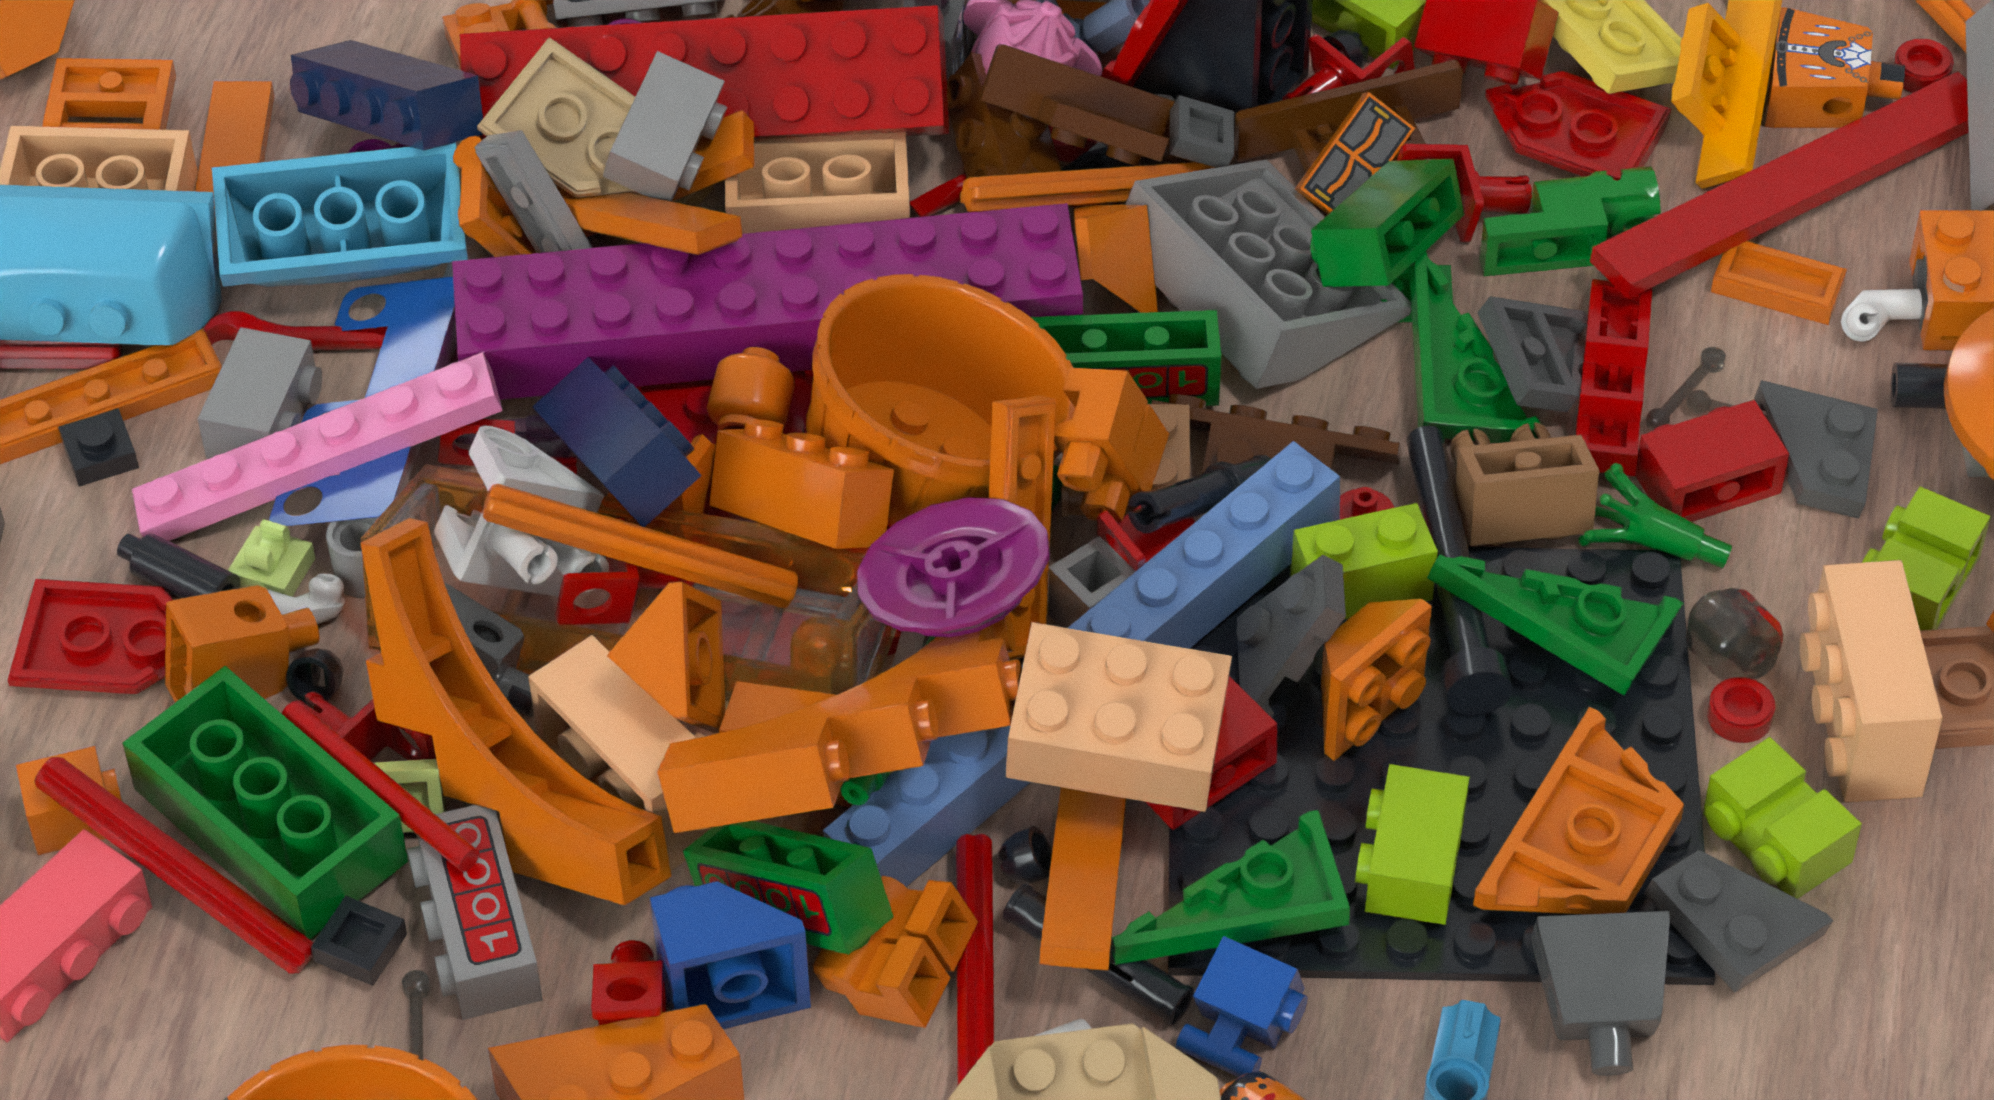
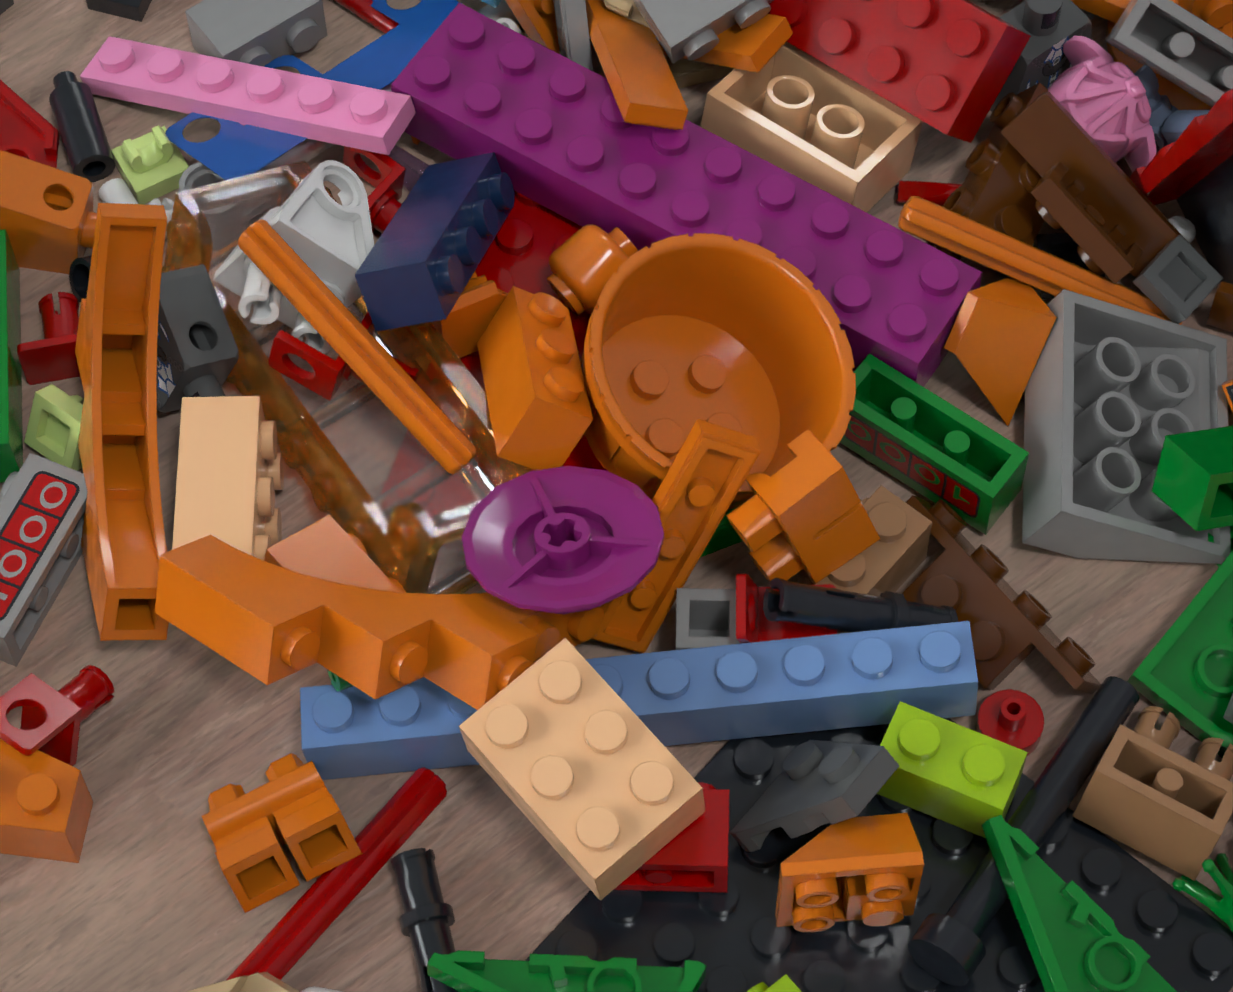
camera: 40 degrees right, 10 degrees up
(411, 811) = (25, 409): red bar -> none
(679, 655) = (290, 466): orange slope -> none
(730, 954) = (124, 736): blue slope -> none
(806, 875) = (230, 731): green brick -> none
(1026, 856) = (475, 828): black hinge -> none
(1083, 880) = (454, 891): orange tile -> none

